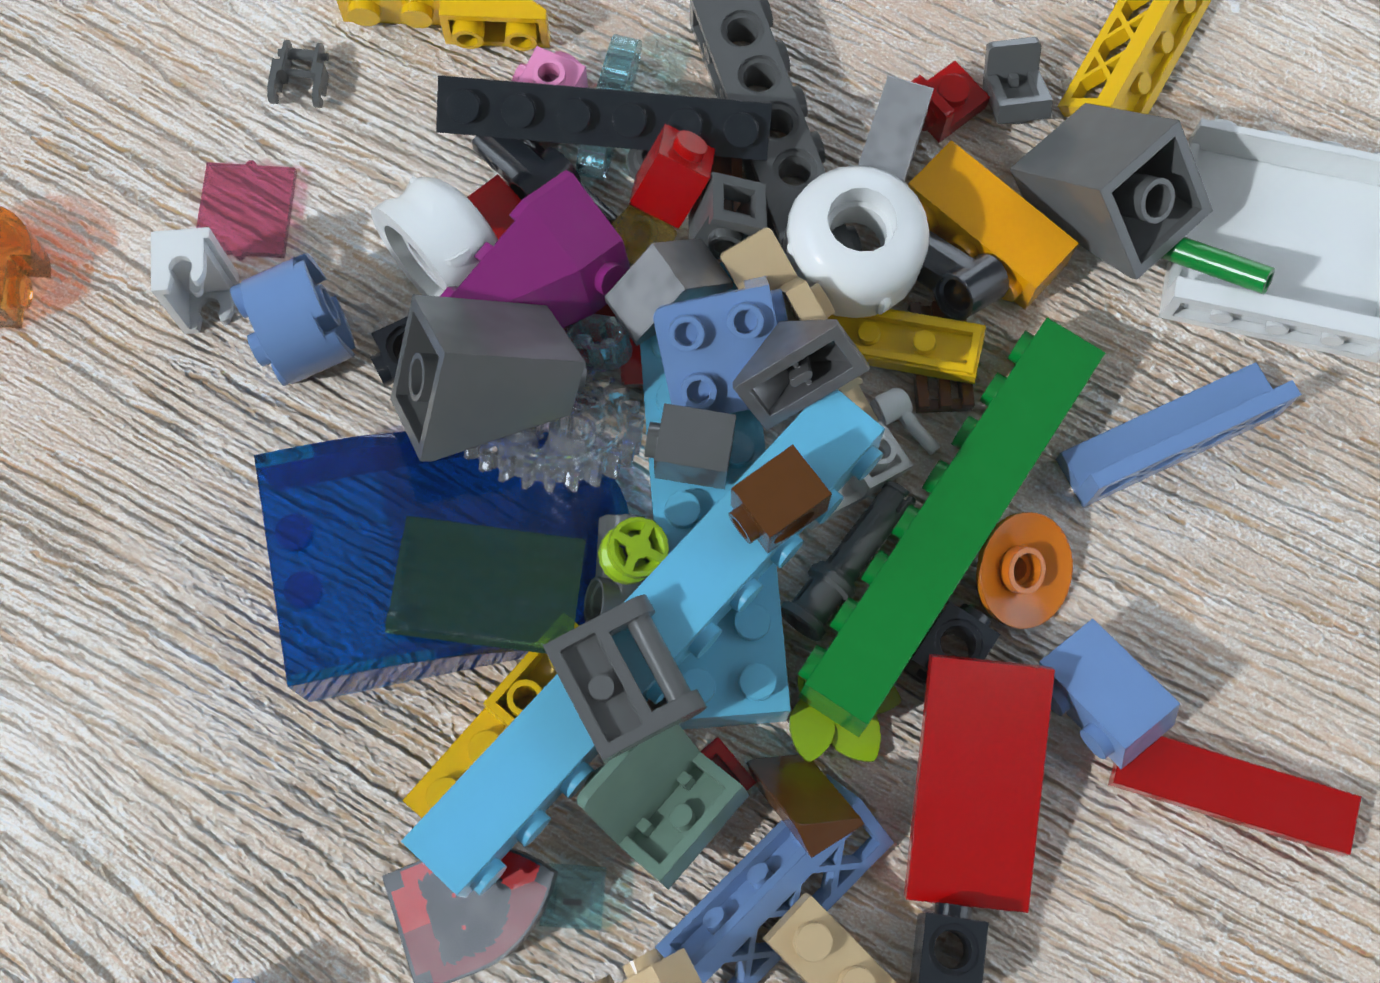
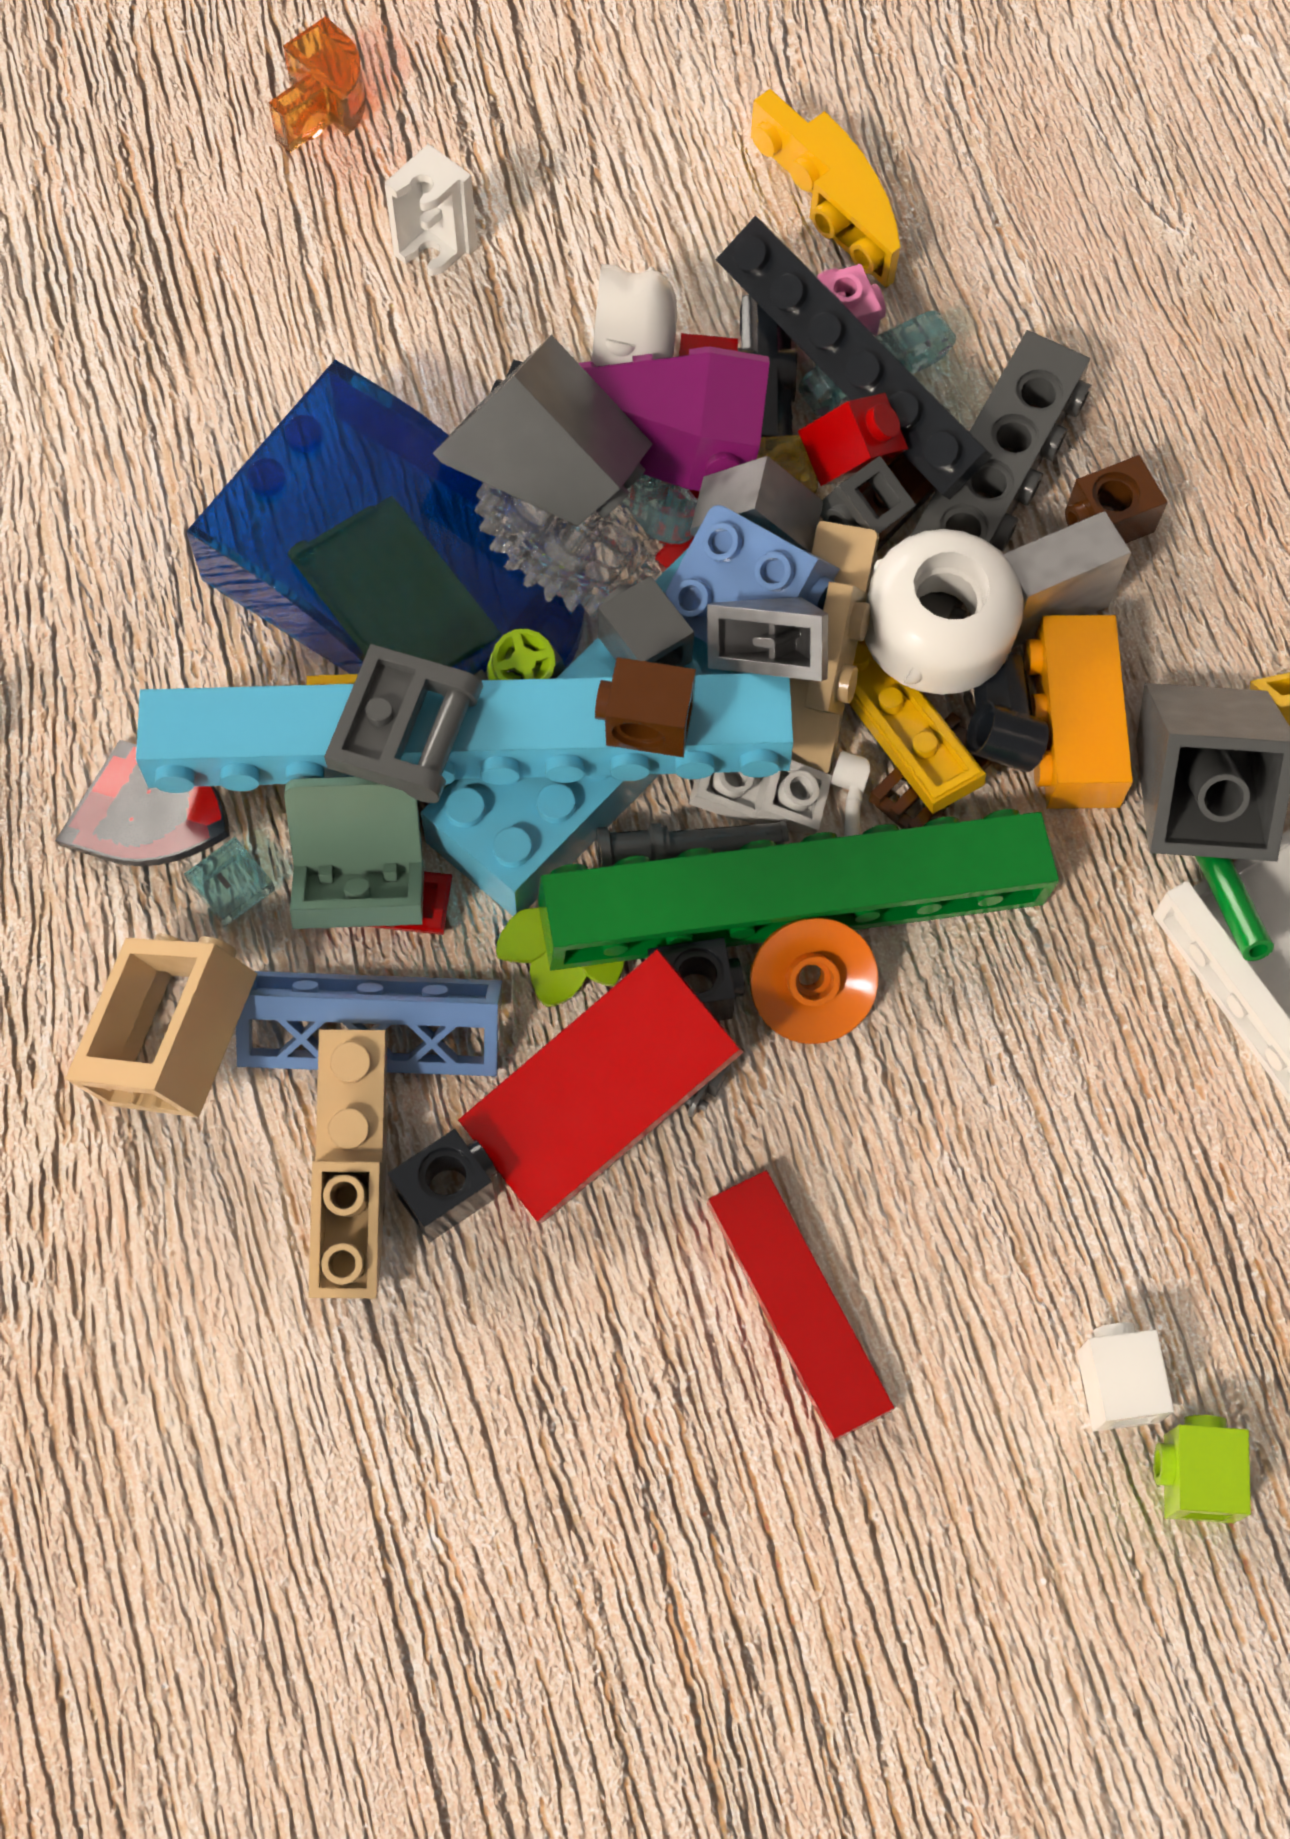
camera: 45 degrees right, 5 degrees down
(248, 207) = (531, 207): clear pink piece -> none
(281, 71) = (663, 131): dark grey piece -> none
(294, 320) = (471, 303): medium blue brick -> none
(805, 801) = (455, 966): reddish brown slope -> none
(866, 47) = (1125, 487): none -> reddish brown brick
(953, 100) = (1157, 594): red bracket -> none
(1015, 81) = (1230, 626): dark grey bracket -> none
(1108, 695) = (771, 1124): medium blue brick -> none
(1173, 433) = (1058, 1005): medium blue fence -> none

